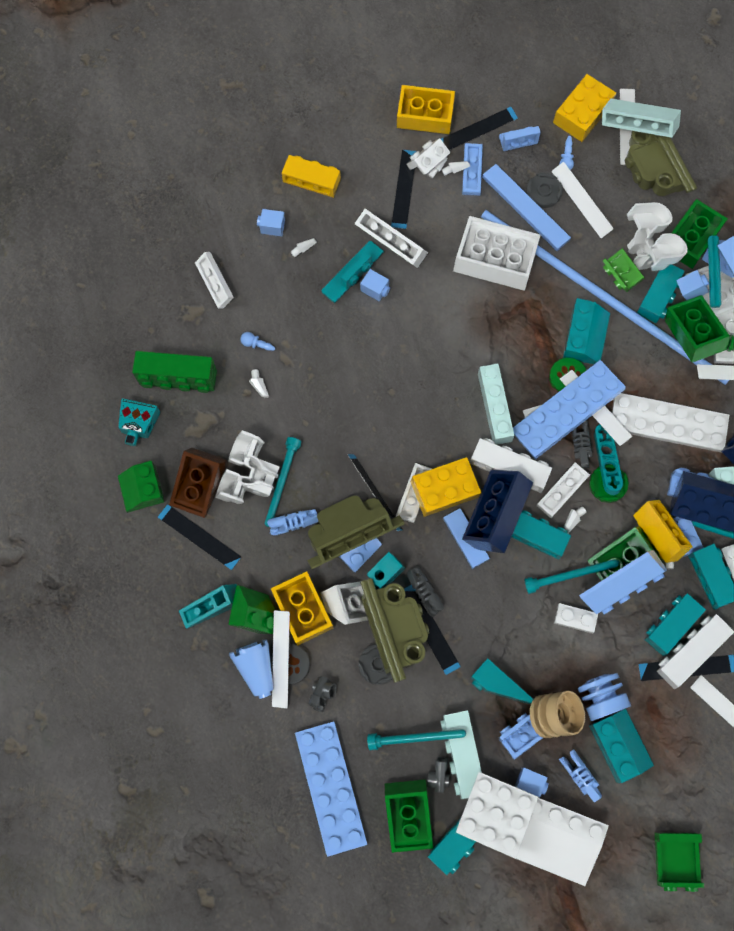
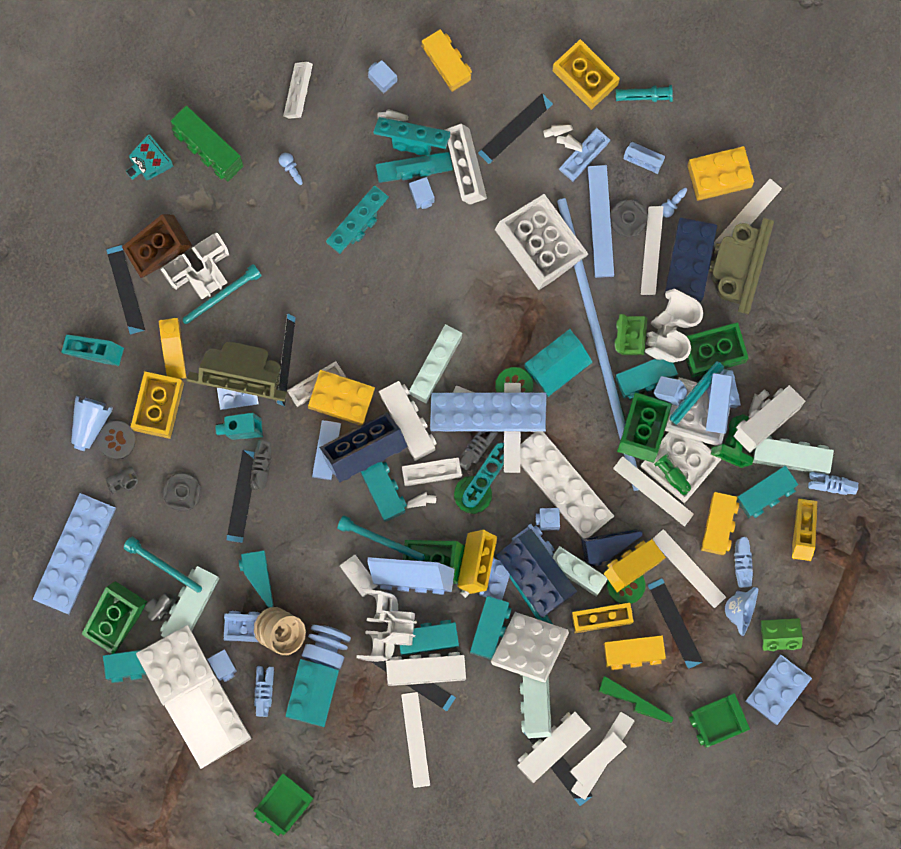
camera: 35 degrees right, 5 degrees up
(140, 486) = (111, 216): green slope -> none
(252, 611) = (119, 378): green slope -> none
(258, 384) = (265, 203): white bar -> none
(276, 553) = (172, 348): none -> yellow slope
(280, 659) = (111, 430): white sticker -> none
(292, 521) = (203, 333): light blue hinge -> none
(333, 248) = (412, 137): none -> teal bracket
(343, 340) = (359, 219): none -> teal bracket
(345, 603) = (195, 428): white slope -> none
(395, 627) = (215, 473): olive brick -> none
(429, 157) = (554, 117): white bracket -> none
(479, 128) = (618, 123): black sticker -> none
(486, 89) = (654, 93): none -> teal pin
(616, 181) = (691, 257): none -> dark blue brick
(641, 117) = (751, 219): light aqua brick -> none
(652, 633) = (399, 627): none -> white piece
(685, 454) = (548, 519): none -> light blue brick

